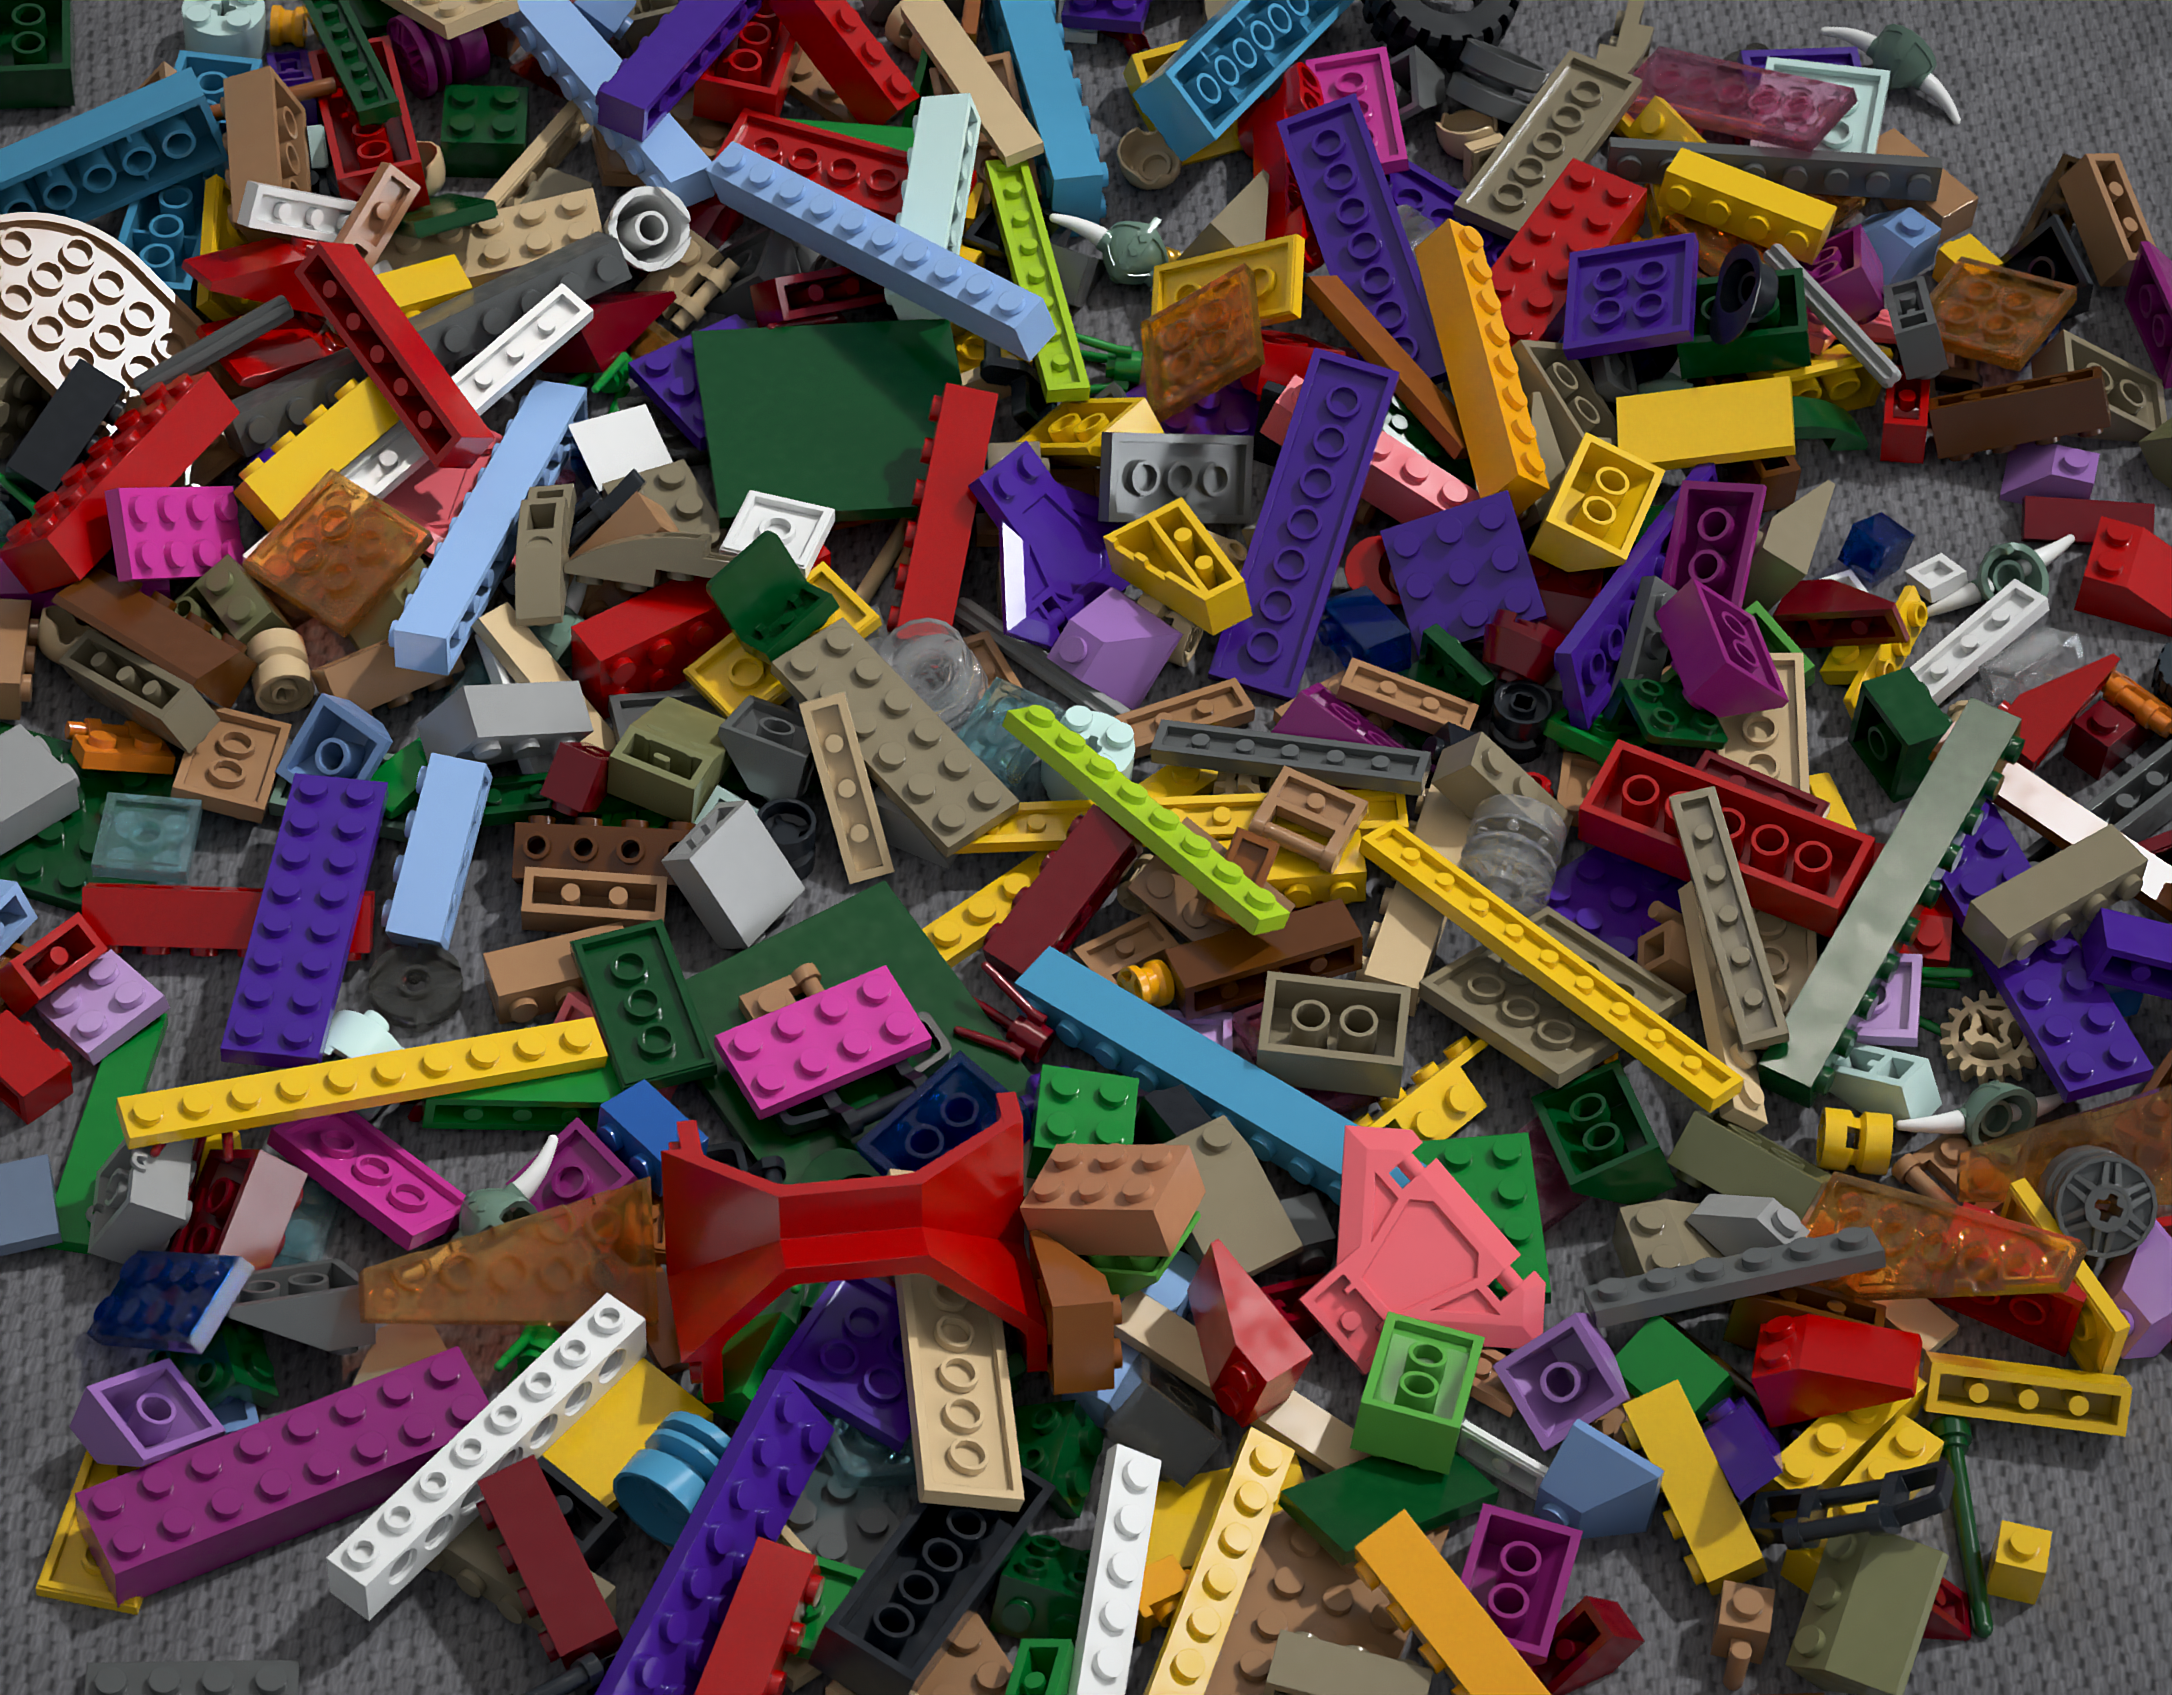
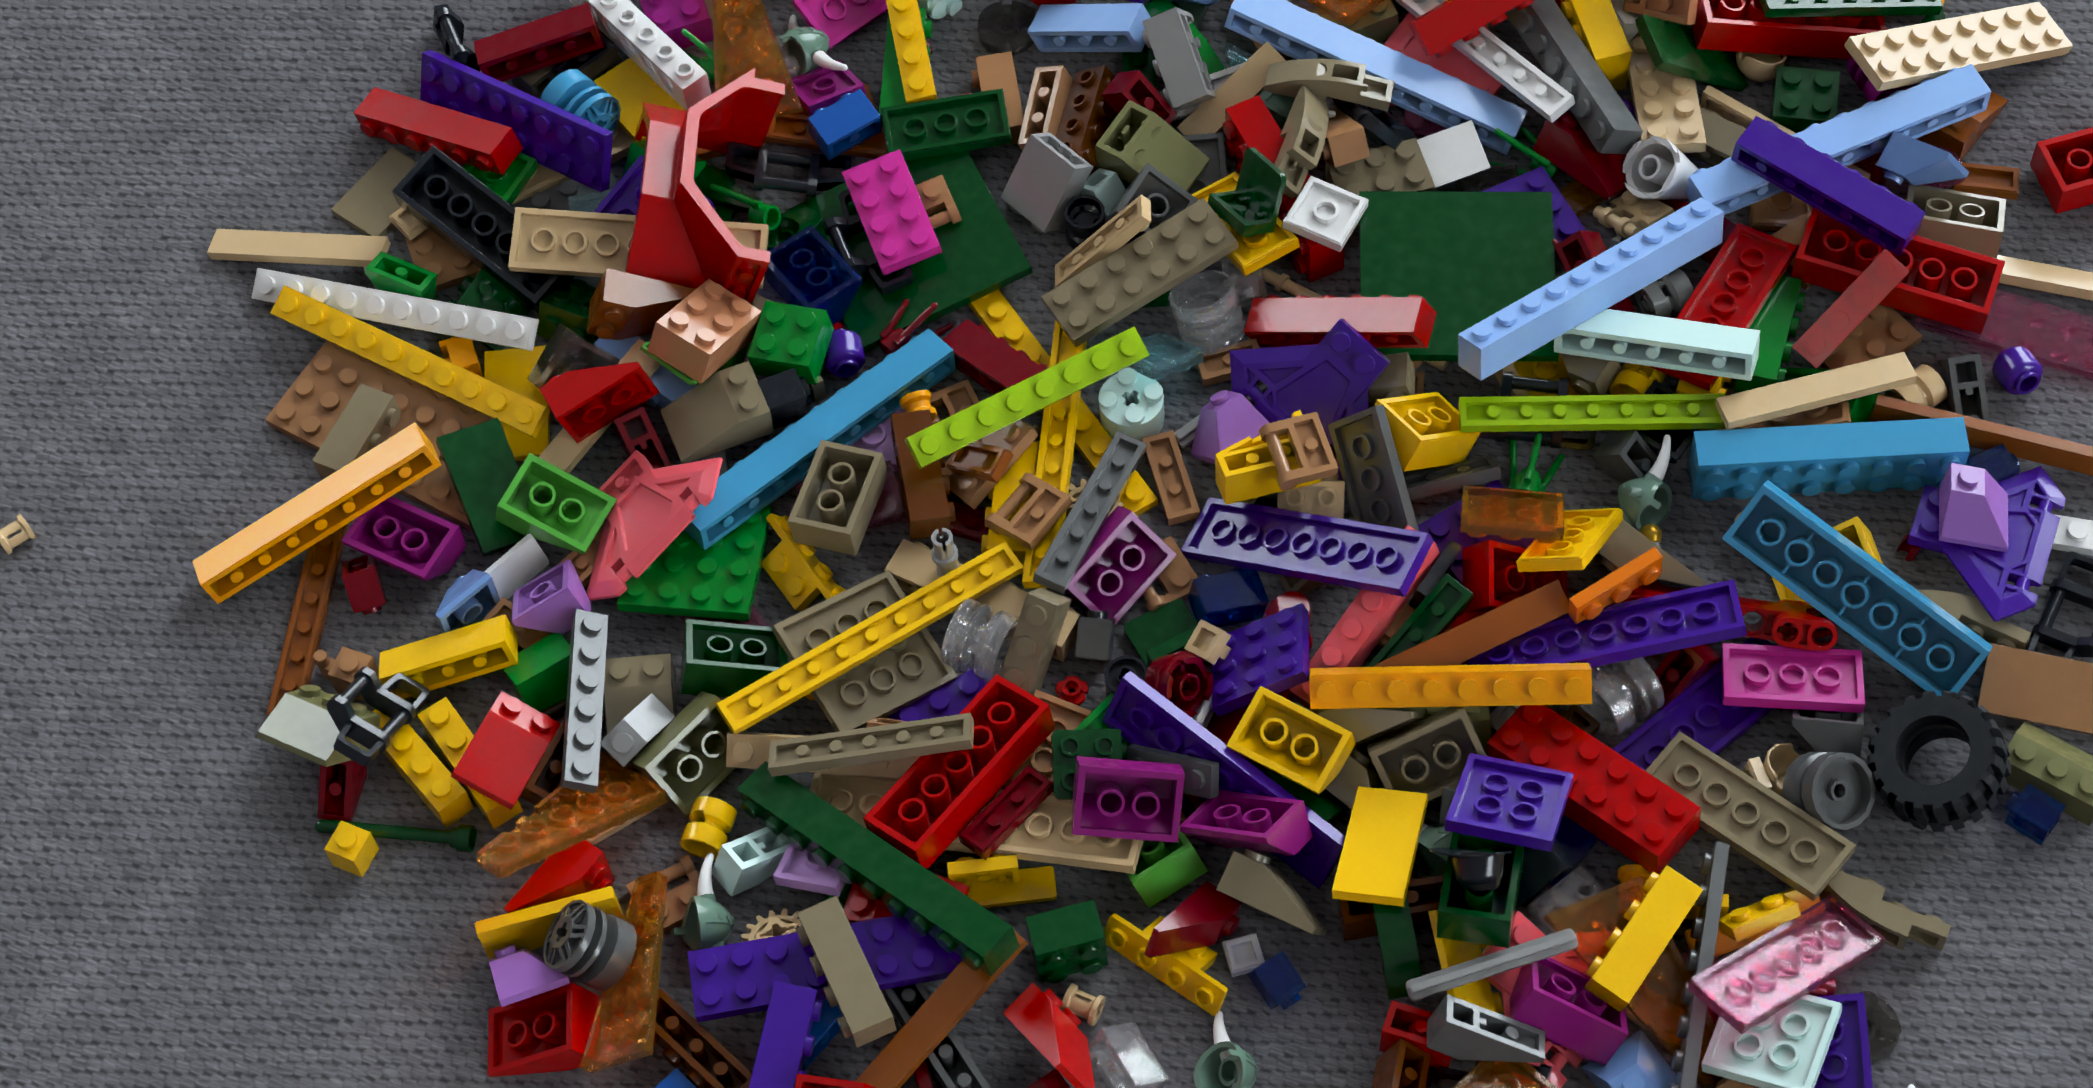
camera: 110 degrees right, 10 degrees up
(1186, 497) = (1308, 445): none -> medium nougat plate
(1296, 215) = (1615, 586): none -> orange plate
(1403, 698) = (1150, 609): medium nougat plate -> none
(1407, 889) = (944, 551): none -> light grey pin
(1463, 614) = (1208, 642): none -> tan tile
(1742, 1446) = (459, 684): dark purple slope -> none
(1936, 577) = (1244, 1023): white plate -> none
(1979, 639) = (1159, 1023): white plate -> none
(2026, 1393) = (469, 890): yellow brick -> none

